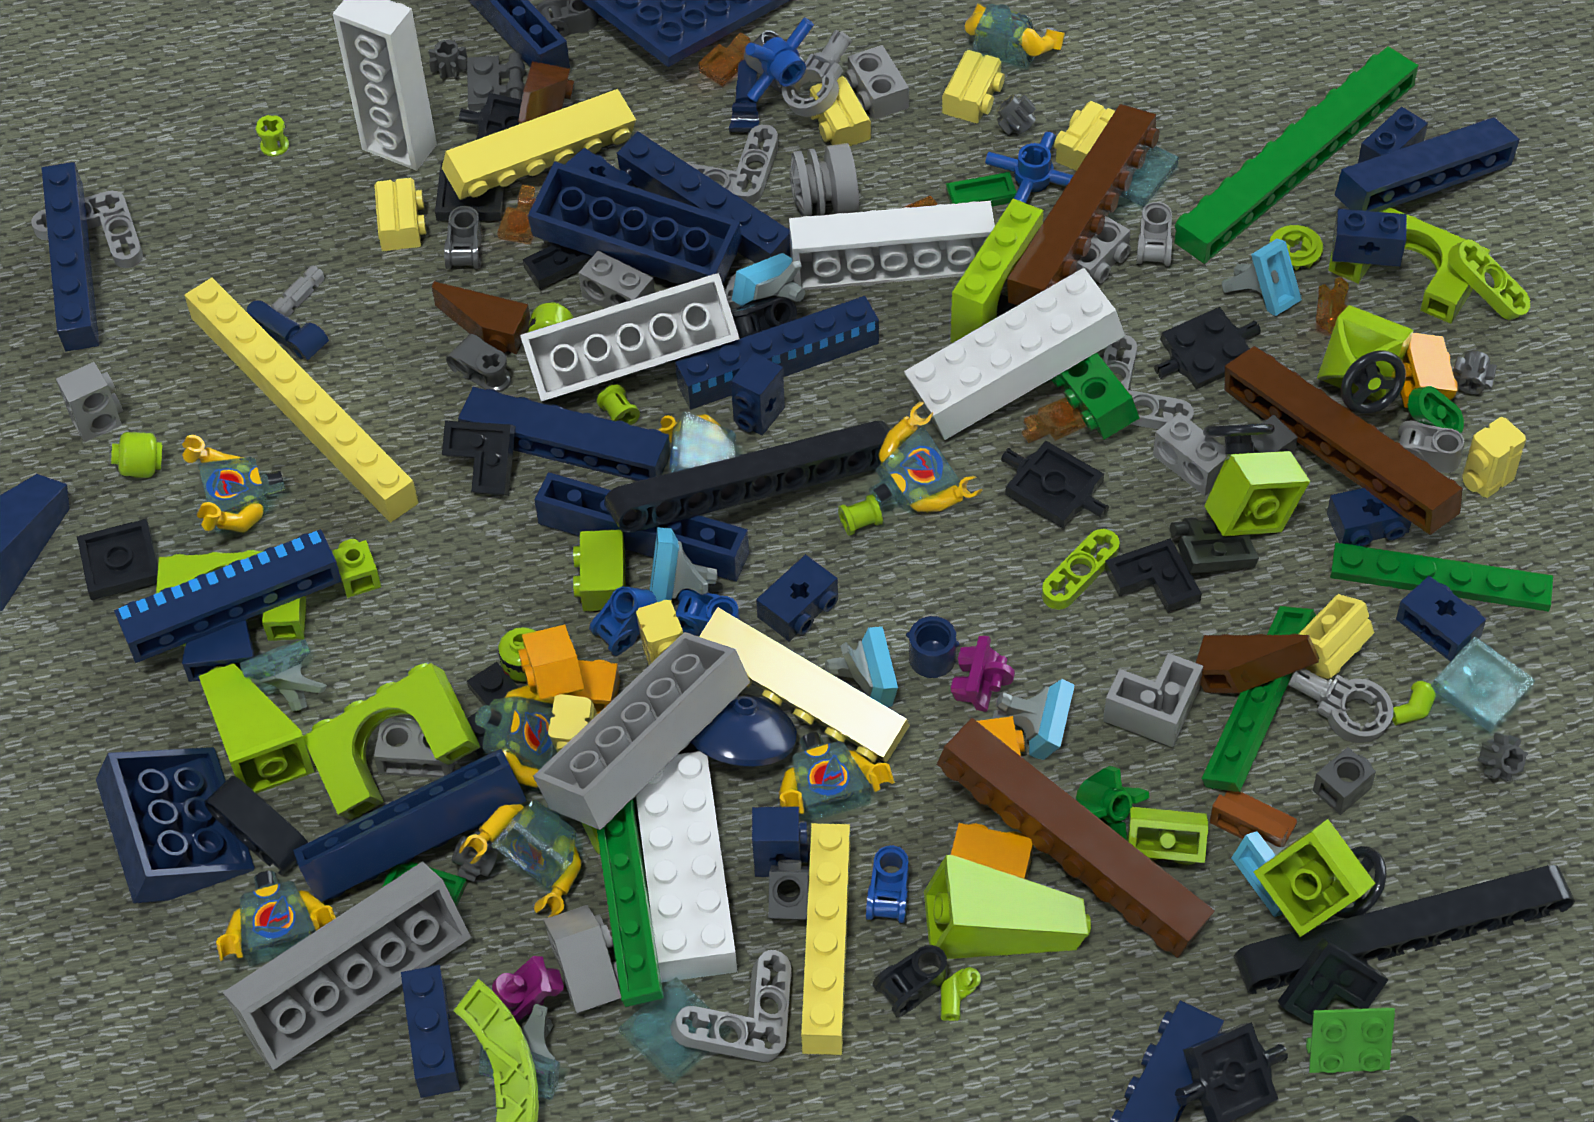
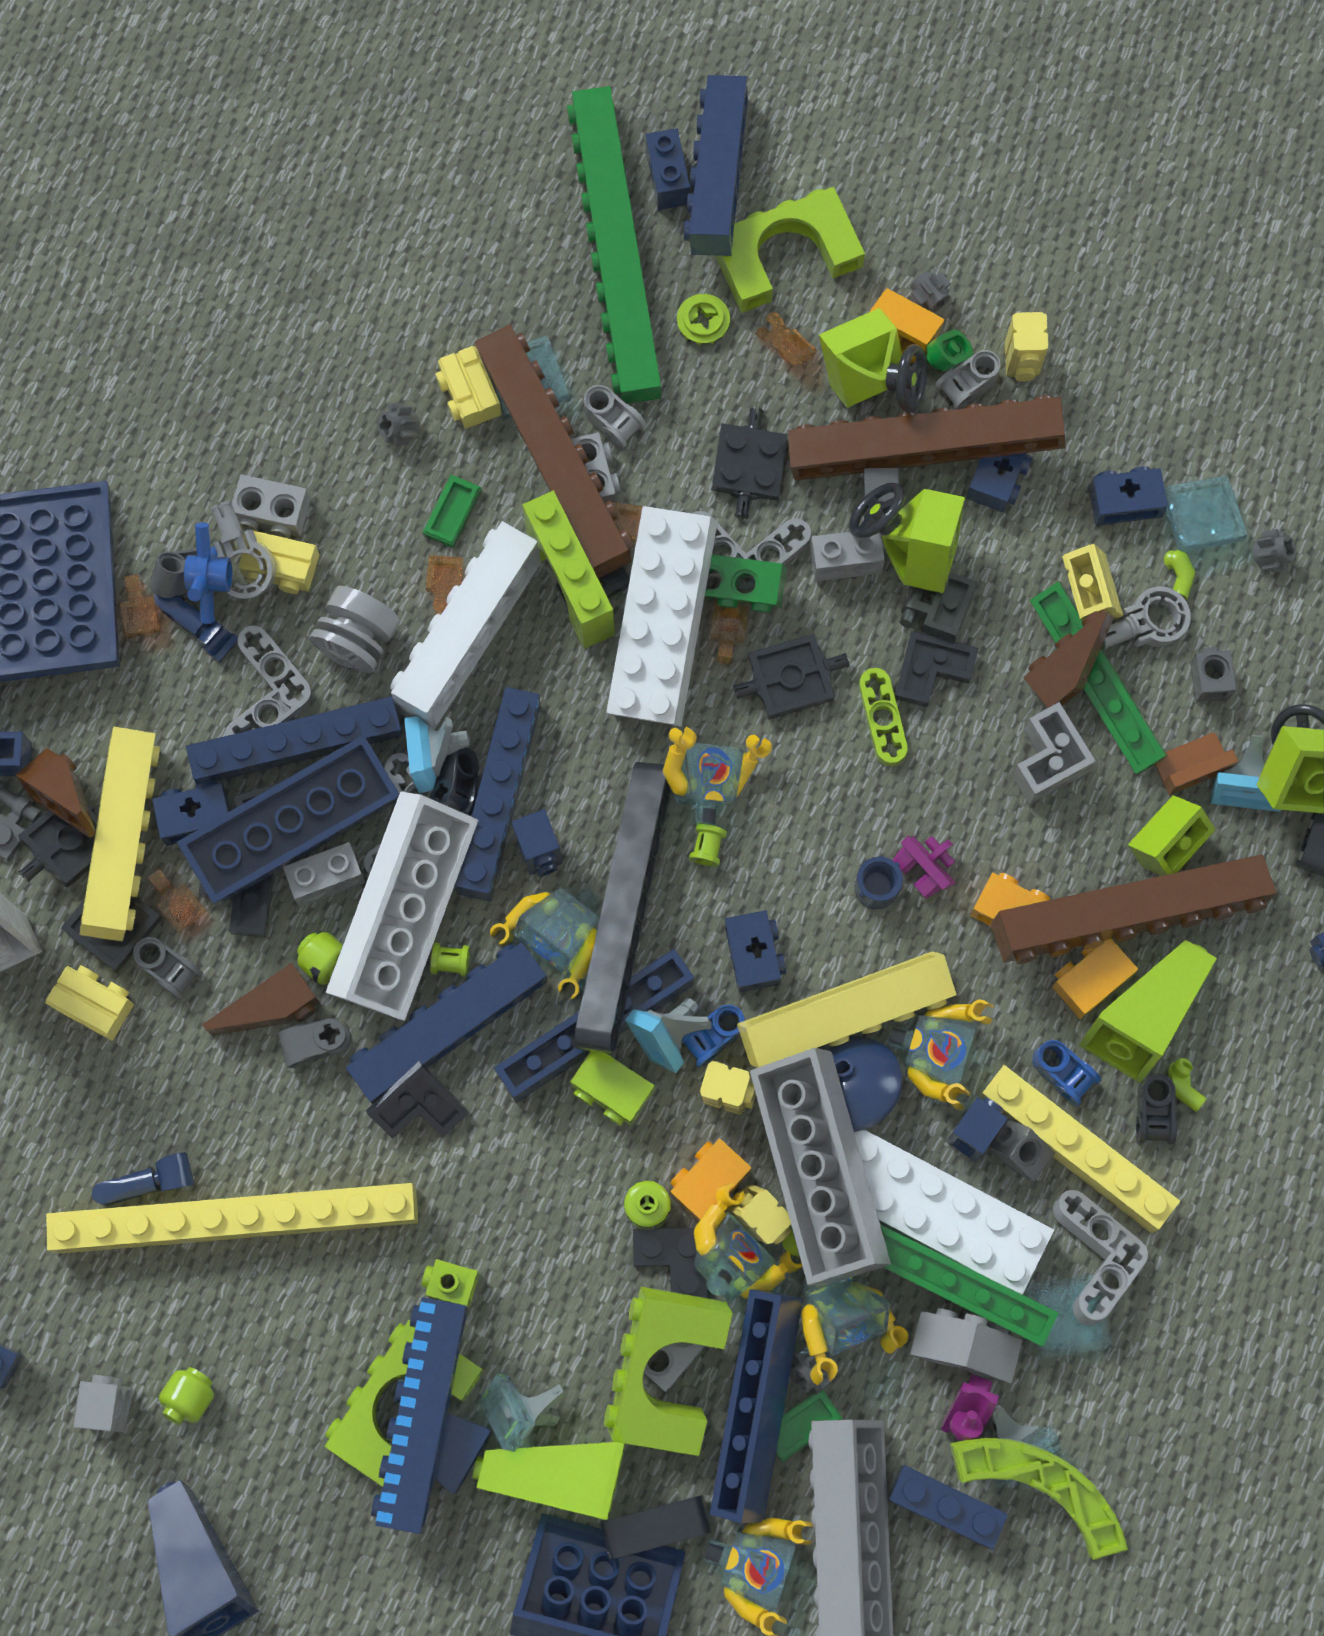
camera: 55 degrees left, 20 degrees up
(118, 559) = (286, 1479): black plate -> none
(231, 487) = (291, 1337): torso -> none
(299, 291) = (105, 1143): light grey axle -> none
(550, 662) = (700, 1195): light orange brick -> none
(618, 619) = (673, 1104): blue piece -> none
(869, 666) = (861, 943): piece -> none
(972, 87) = (338, 435): light yellow brick -> none
(1009, 35) = (309, 368): clear light blue torso -> none
(1032, 168) = (476, 463): blue bar -> none
(1040, 717) = (1000, 848): piece -> none
(1108, 799) = (1112, 858): green brick -> none
(1270, 275) = (725, 362): medium azure piece -> none
(1369, 237) = (763, 266): dark blue brick -> none
(1463, 578) = (1083, 464): green plate -> none
(1507, 295) = (889, 211): lime beam -> none

